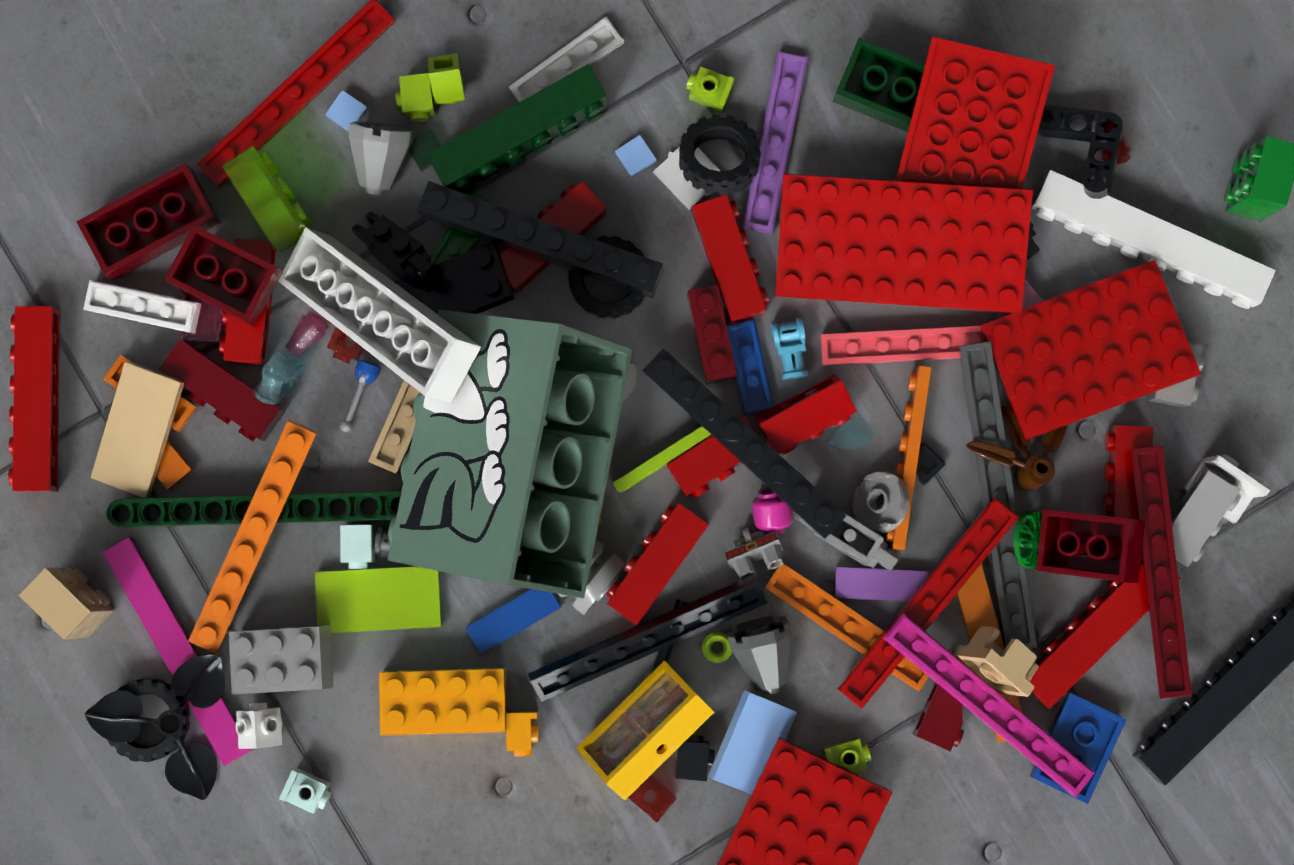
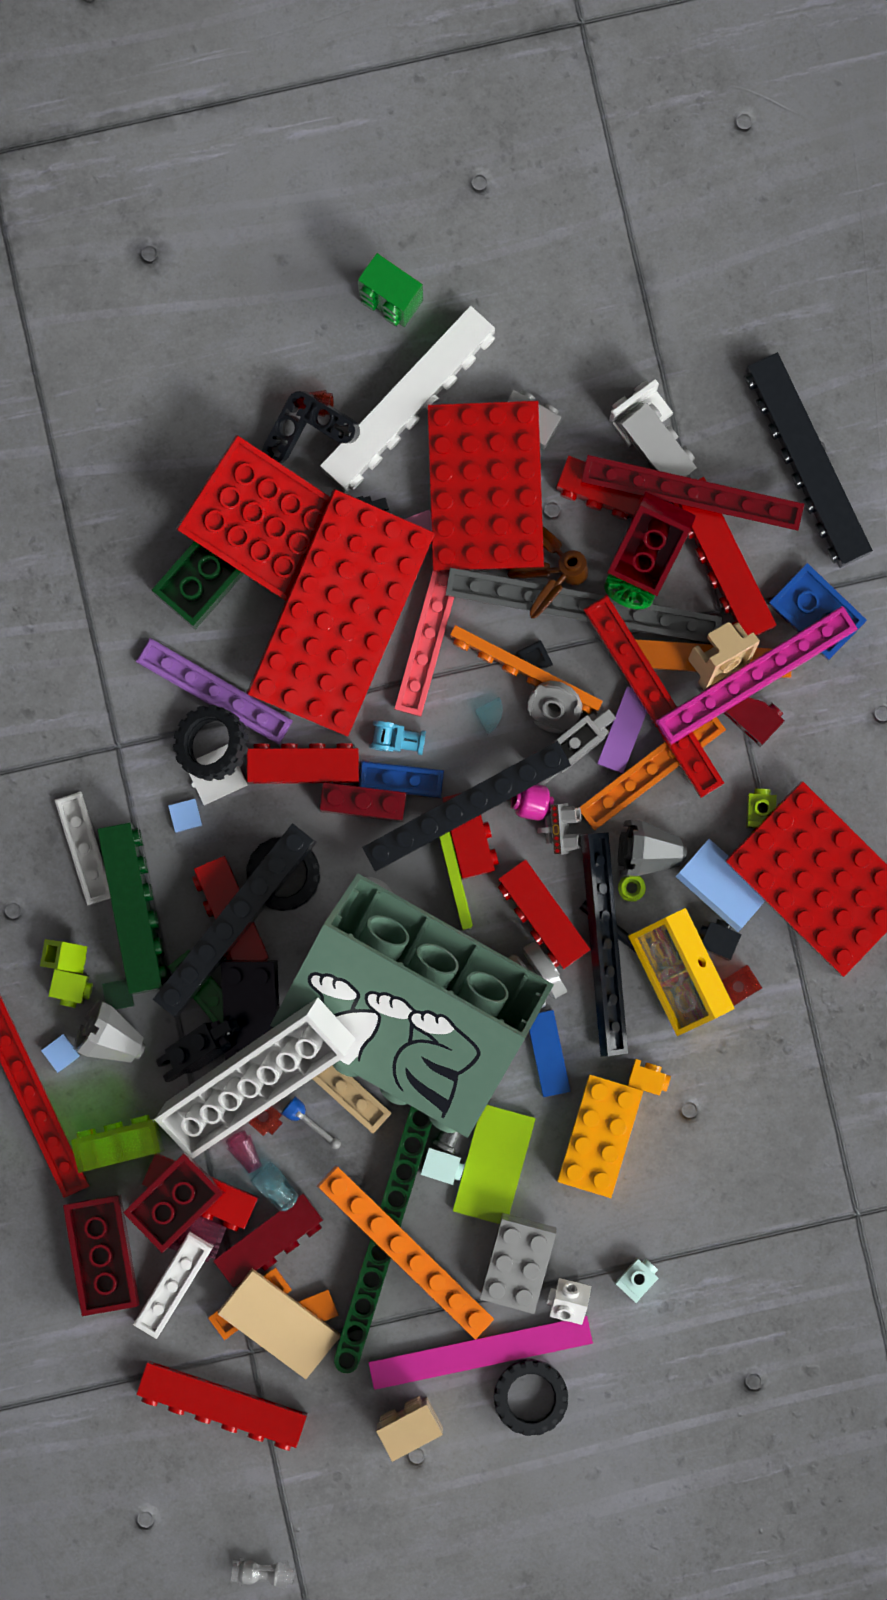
camera: 70 degrees left, 0 degrees up
(196, 680) = (515, 1339): black plant -> none
(712, 98) = (159, 731): lime brick -> none
(806, 415) = (459, 745): red brick -> none

